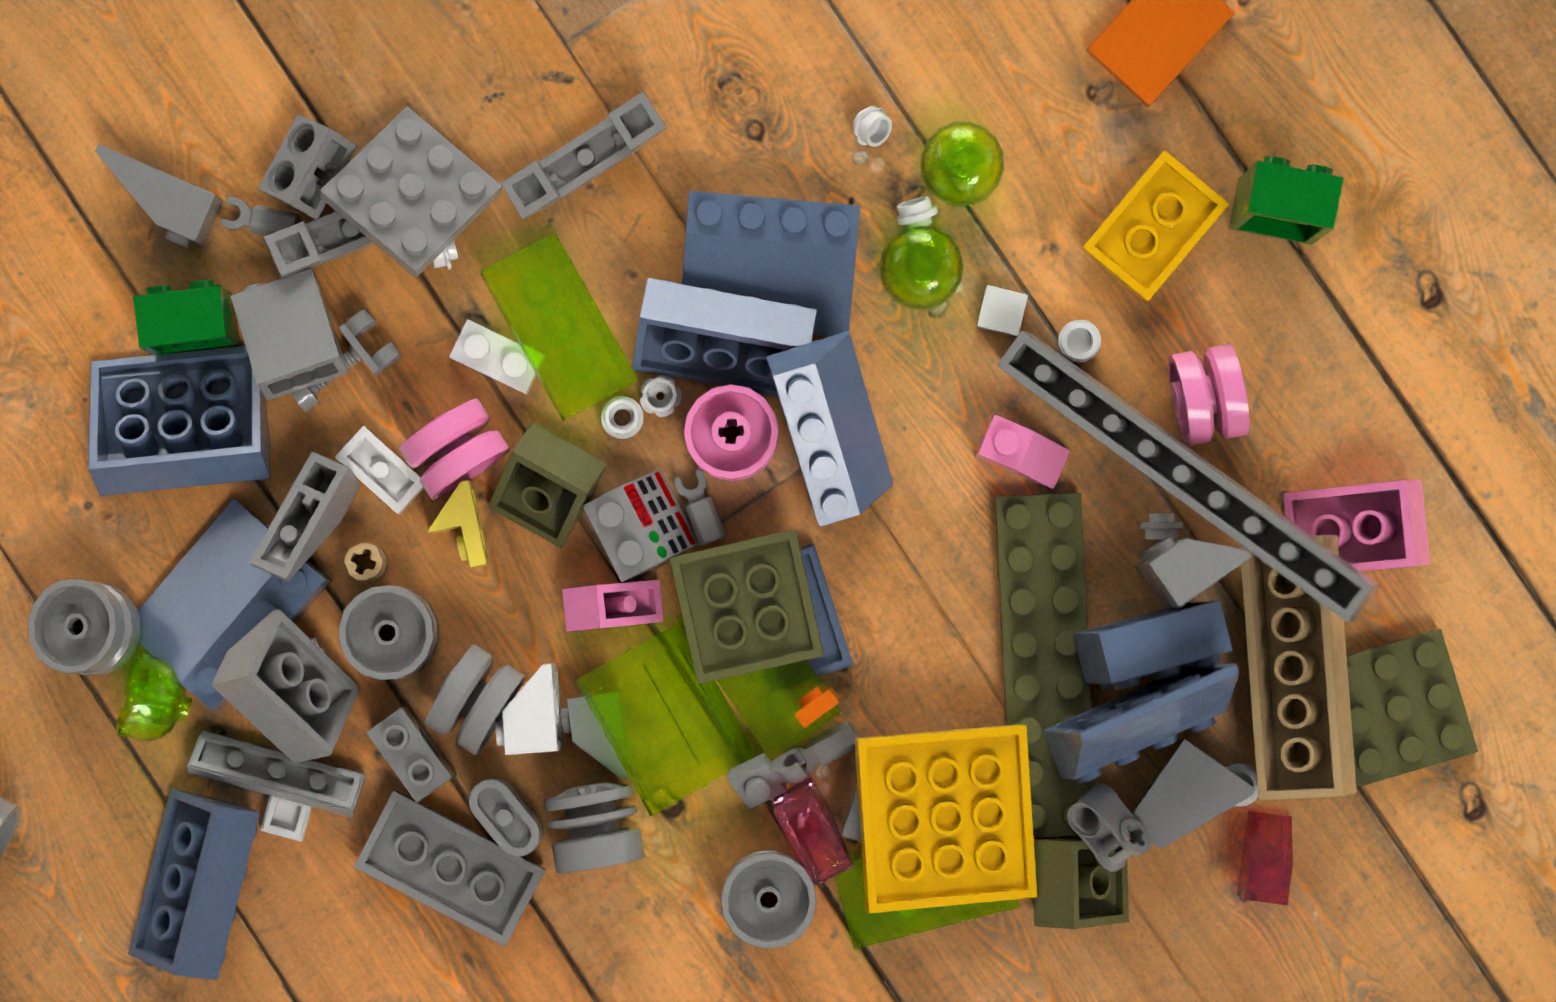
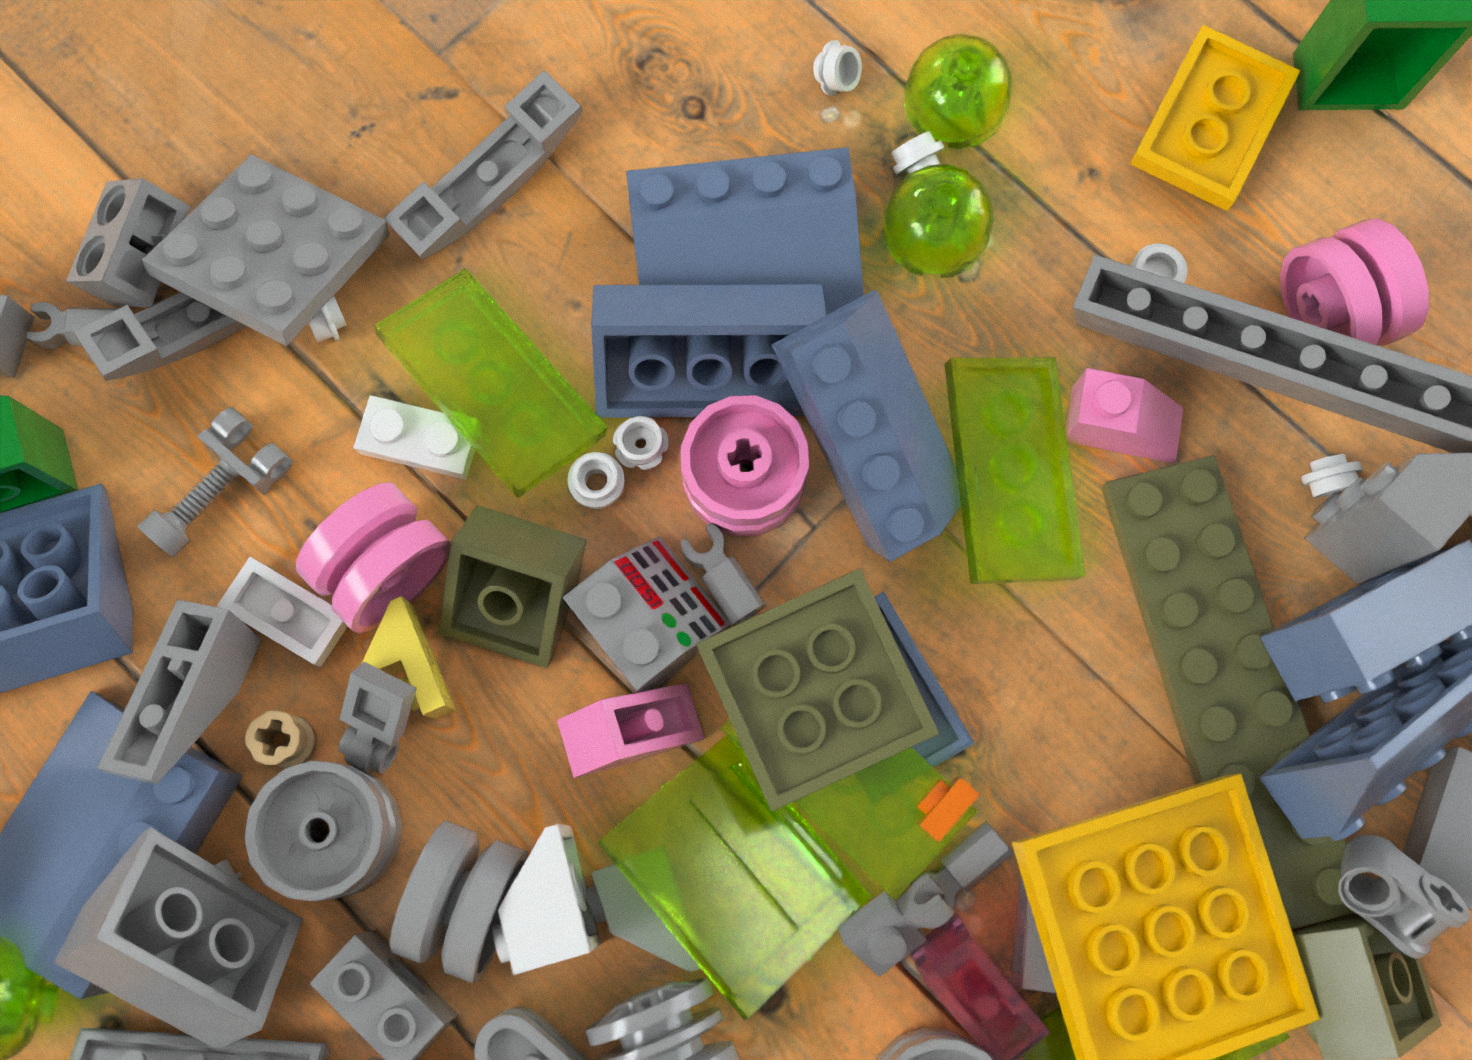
camera: 15 degrees left, 10 degrees down
(288, 334) = (128, 456): light grey brick -> none
(436, 562) = (377, 715): none -> light grey plate
(930, 472) = (1013, 470): none -> clear neon green tile
(1002, 311) = (1052, 254): white tile -> none

